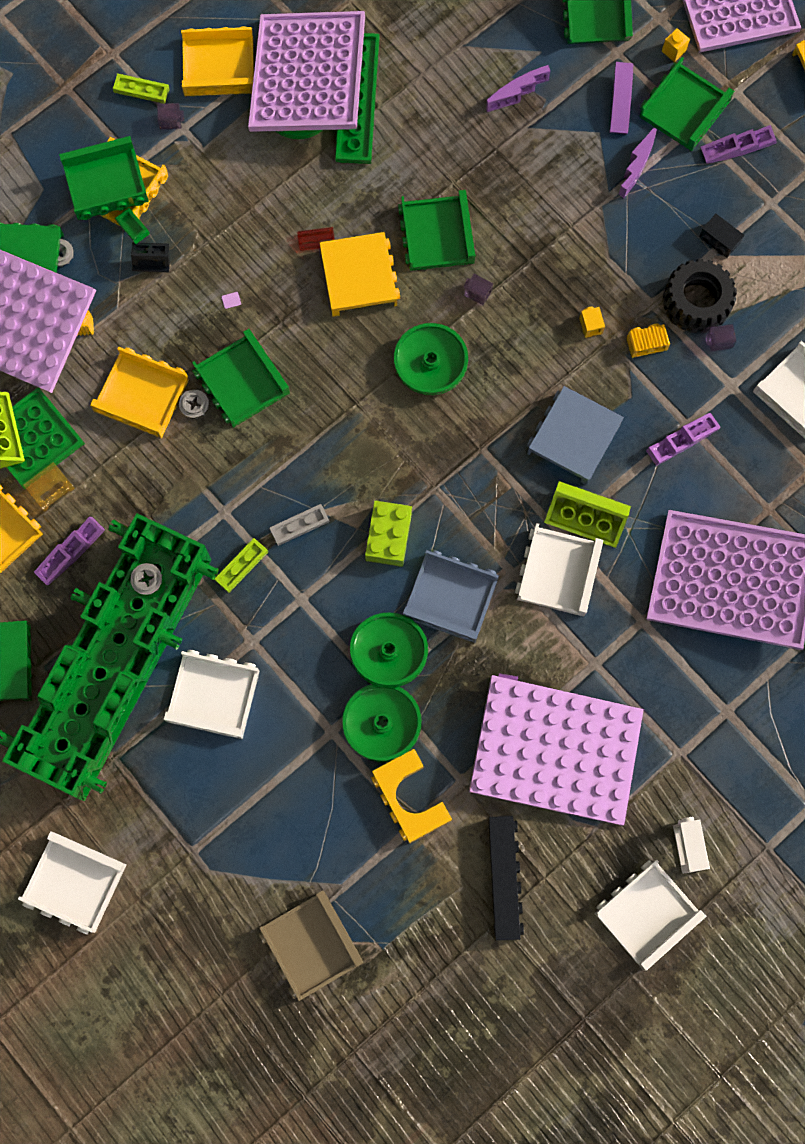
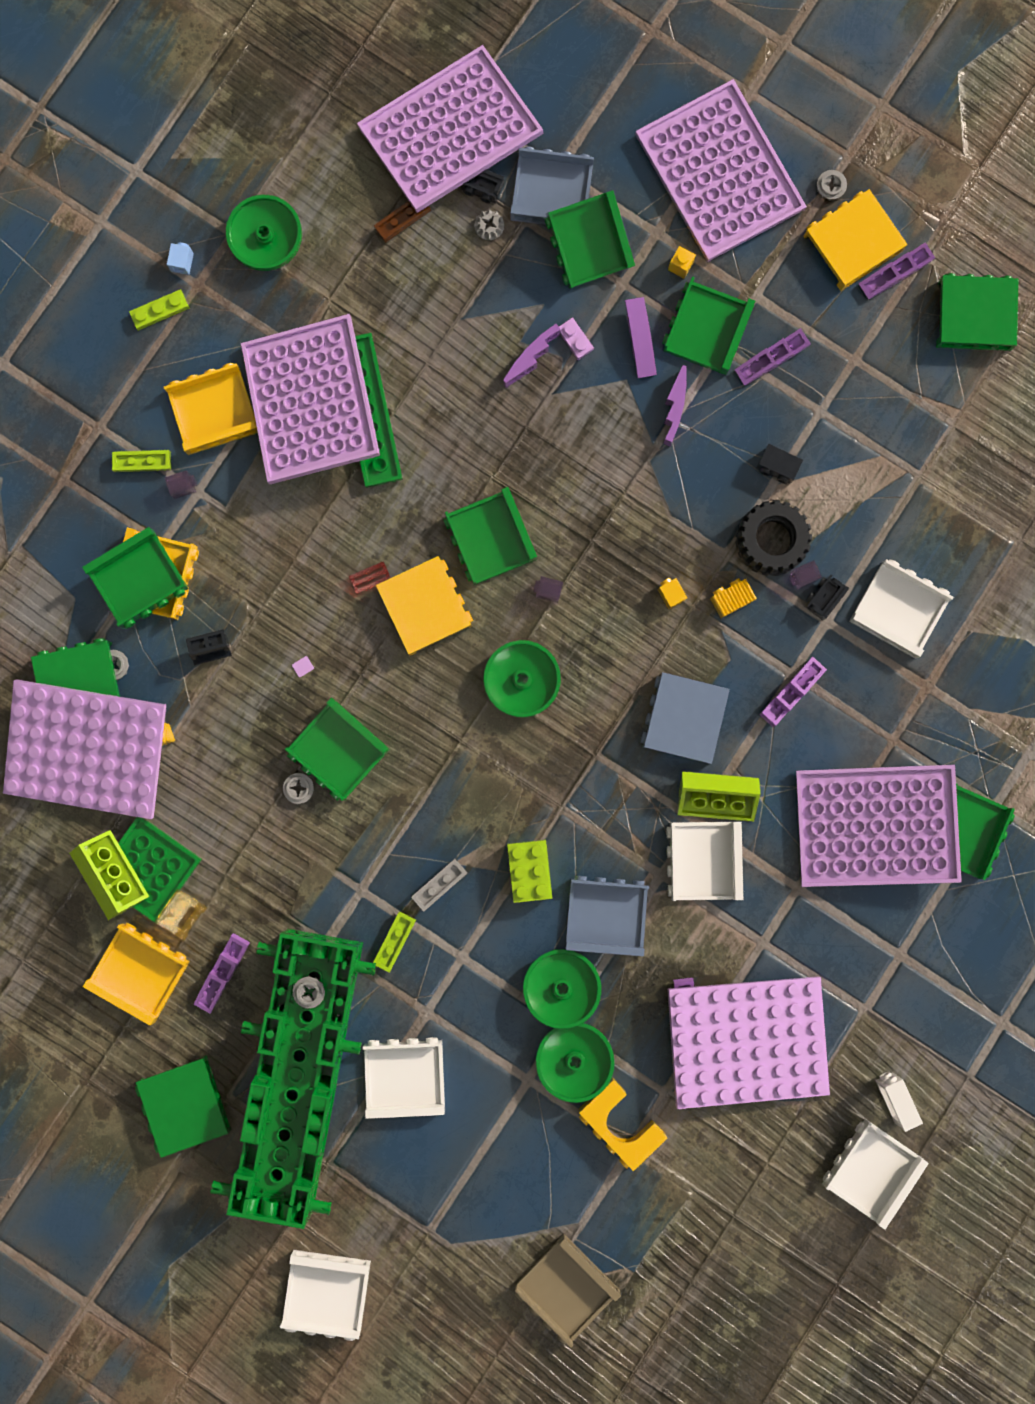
camera: 15 degrees left, 10 degrees up
(132, 226) = (180, 621): green tile -> none
(141, 392) = (242, 791): yellow panel -> none
(504, 878) = (730, 1177): black brick -> none
(562, 86) = (575, 339): none -> lavender plate
(736, 362) = (826, 597): none -> black hinge

